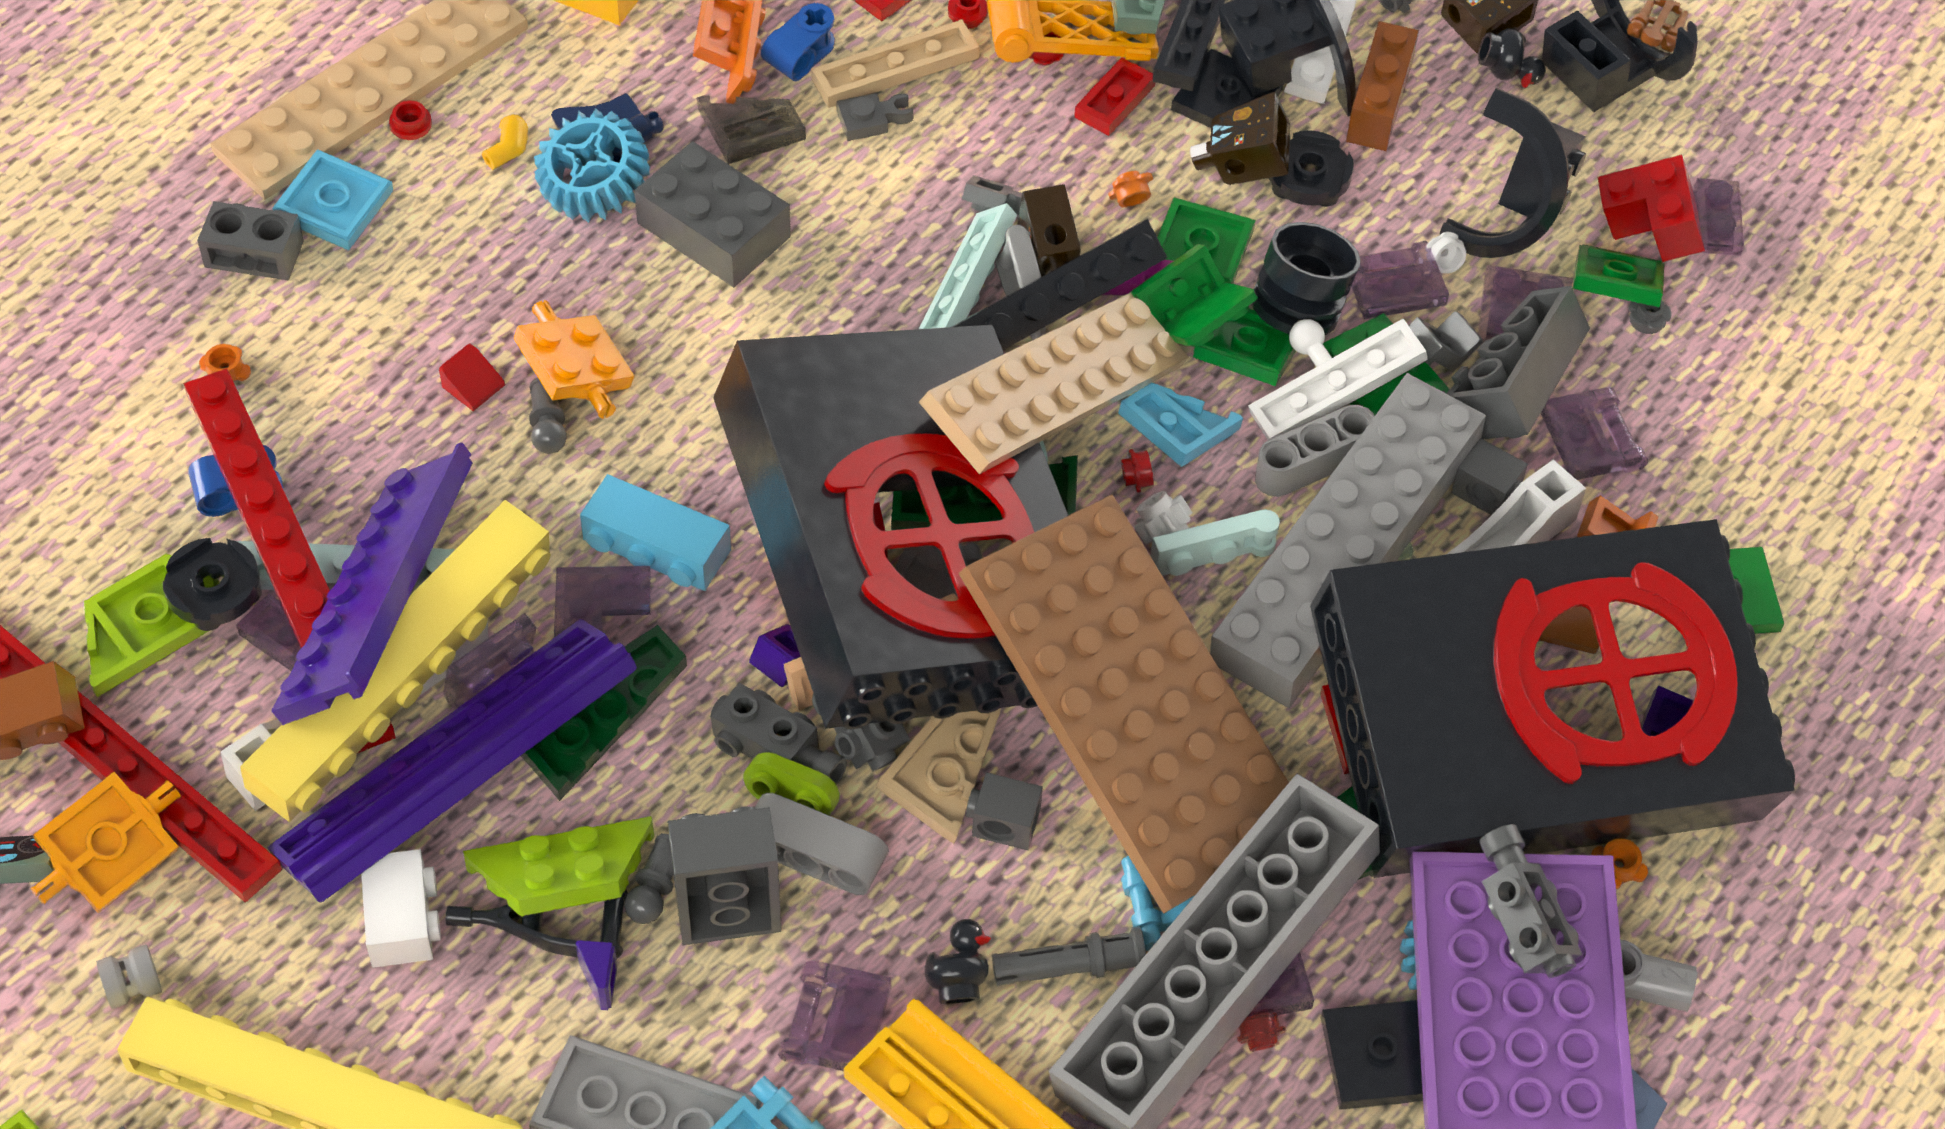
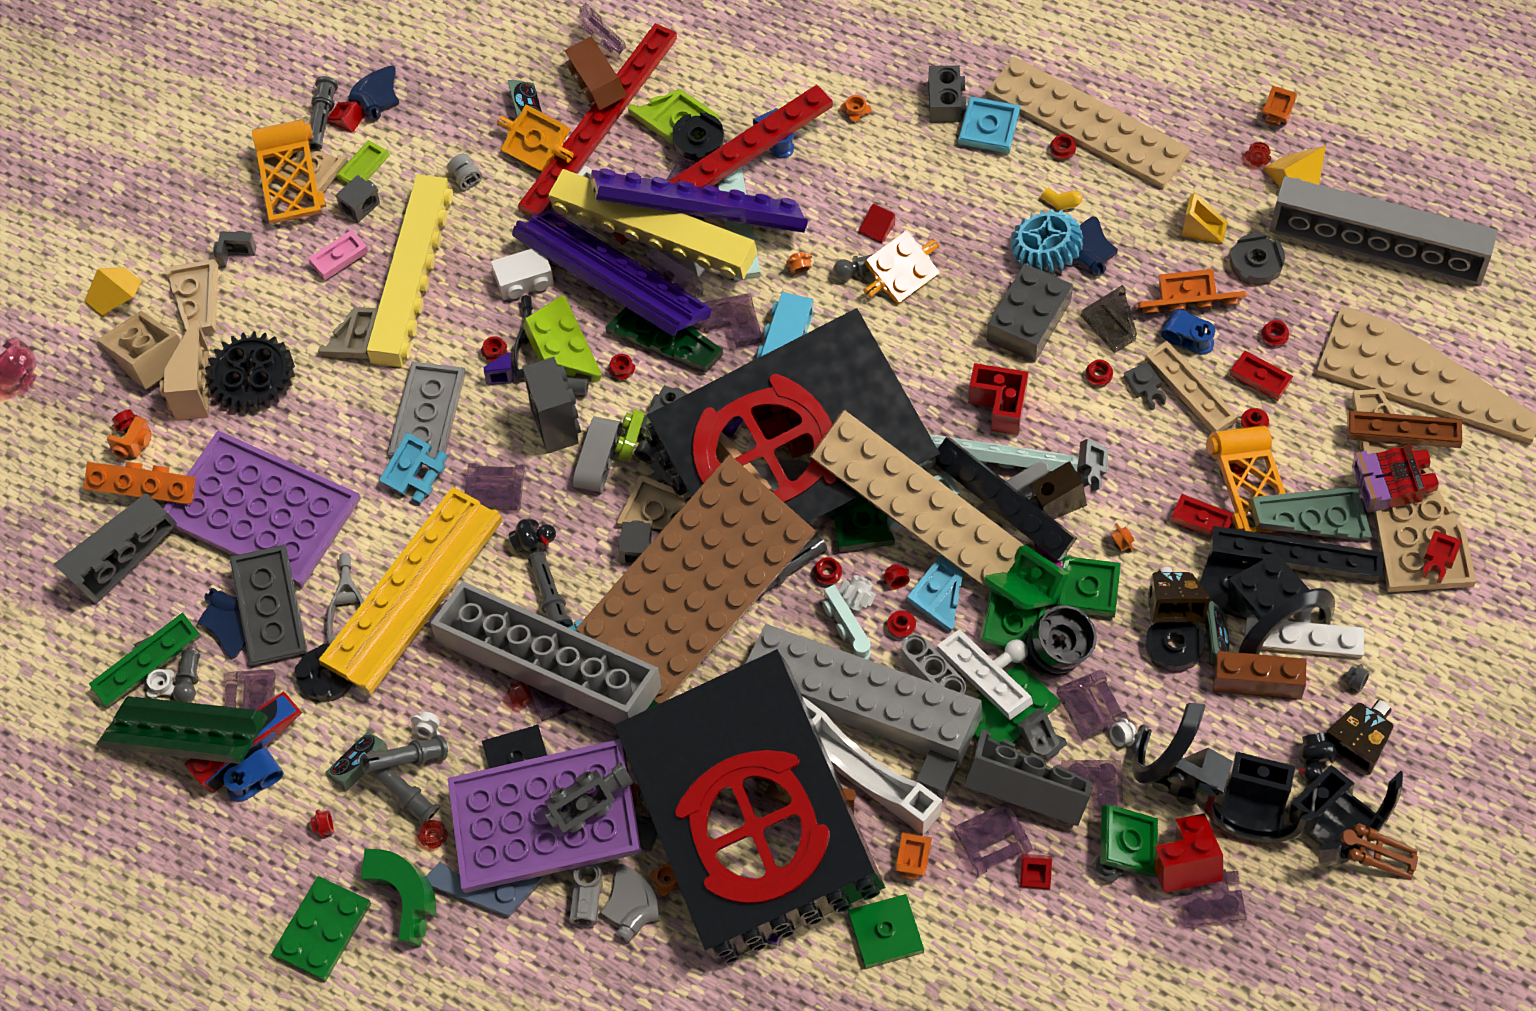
camera: 85 degrees right, 5 degrees up
(516, 490) = (799, 262): none -> orange plate
(543, 969) = (493, 343): none -> red plate
(638, 774) = (624, 361): none -> red plate
(835, 152) = (1099, 366): none -> red plate
(860, 265) = (1002, 390): none -> red brick
(1217, 488) = (901, 631): none -> red plate
(1316, 119) = (1216, 631): none -> slope
(1606, 129) = (1256, 801): none -> black piece
(1643, 396) = (1036, 871): none -> red slope
(1665, 919) = (631, 903): none -> light grey arm

